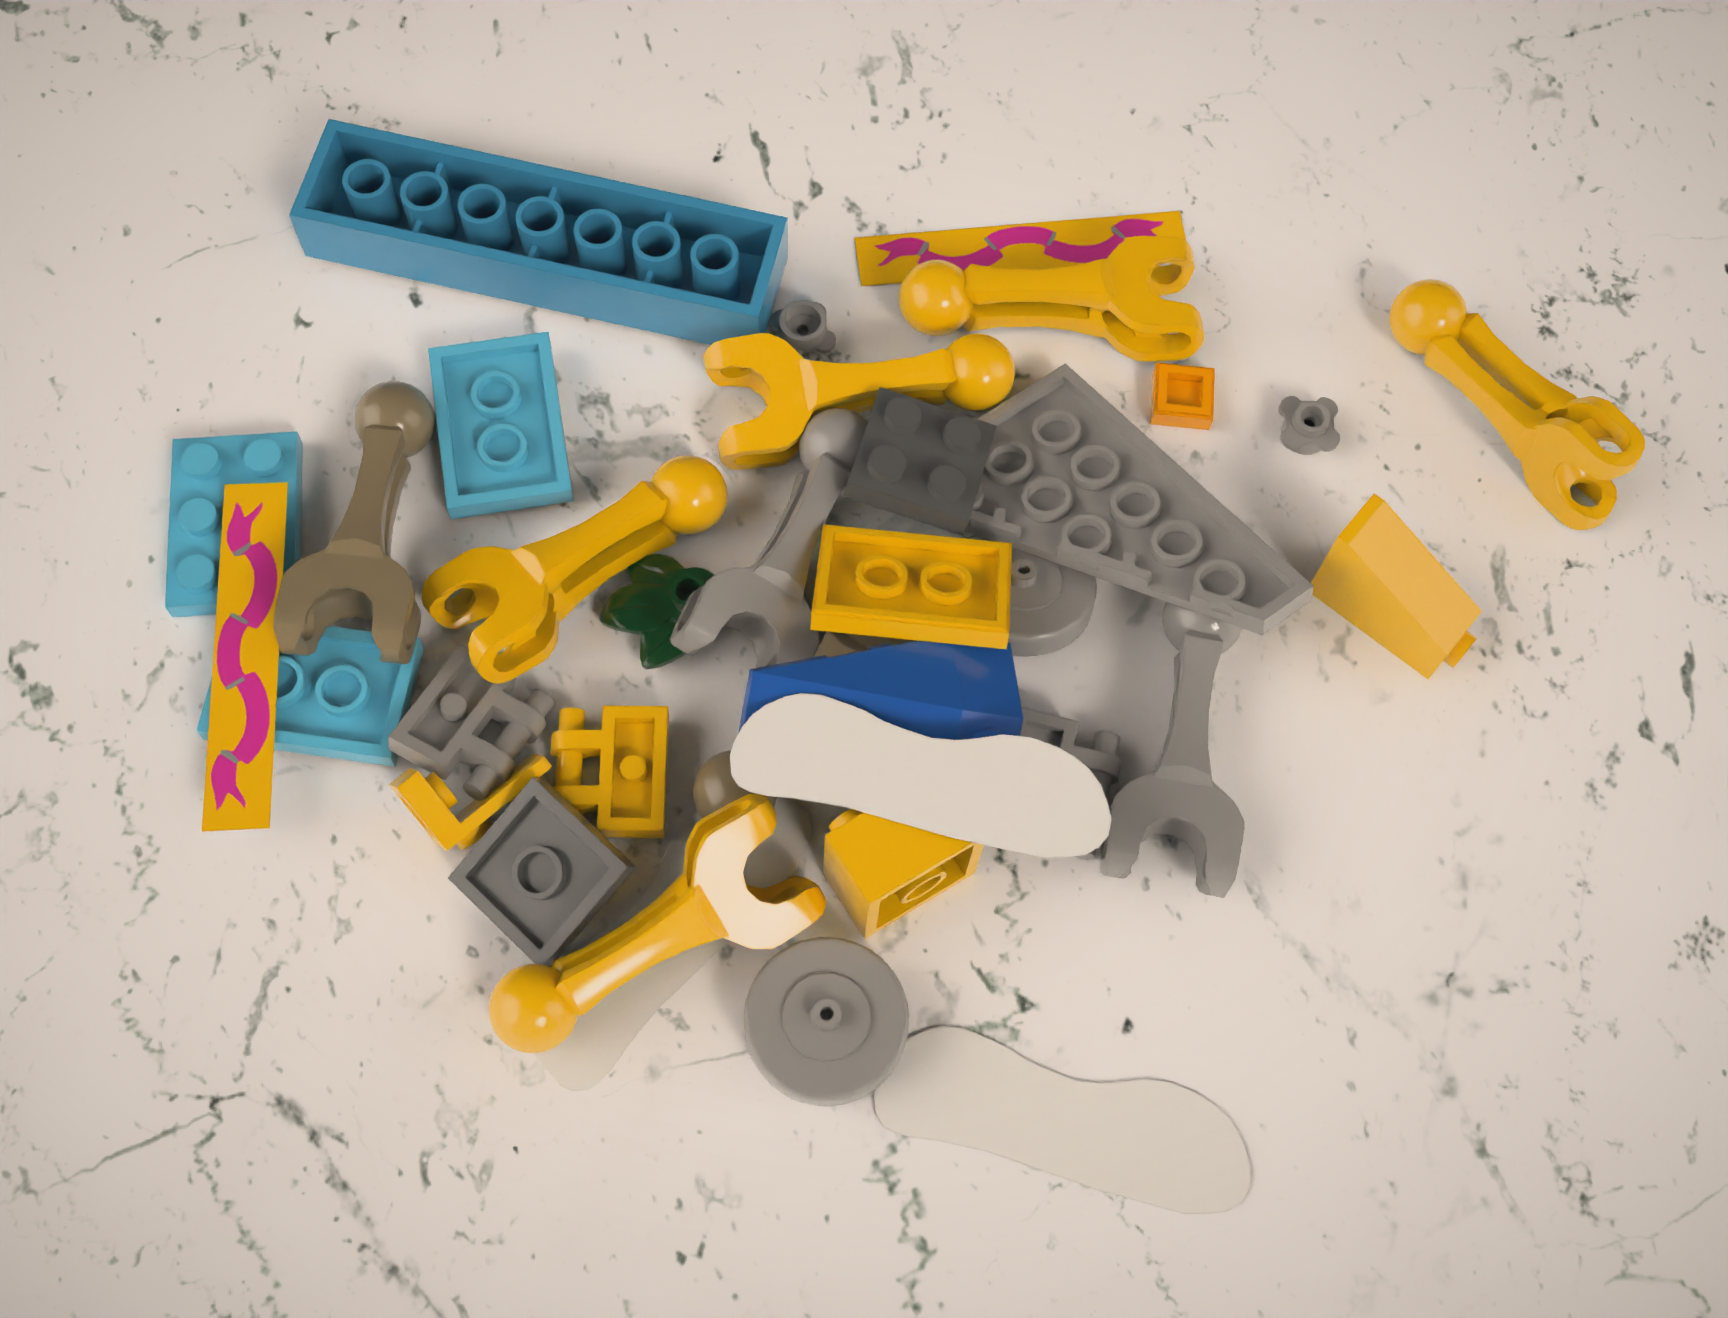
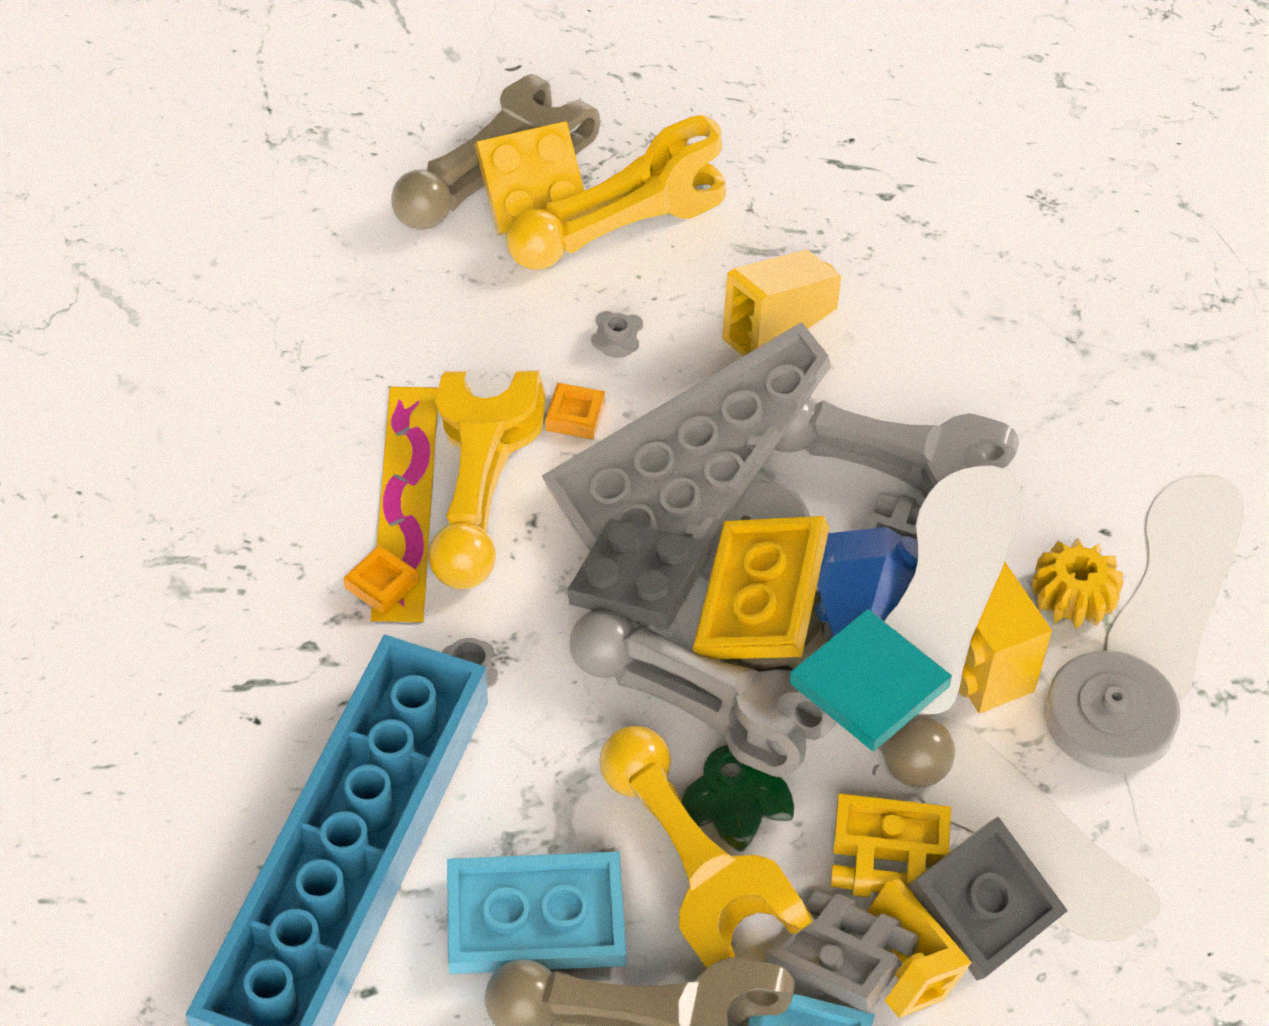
camera: 80 degrees left, 15 degrees down
(539, 1004) = (1031, 788): yellow piece -> none
(757, 688) = (870, 679): none -> teal tile
(902, 234) = (381, 580): none -> light orange tile
(970, 372) = (549, 664): yellow piece -> none
(1000, 992) = (1077, 583): none -> yellow gear
(1527, 288) = (528, 171): none -> yellow plate
(1597, 278) = (425, 196): none -> dark tan piece

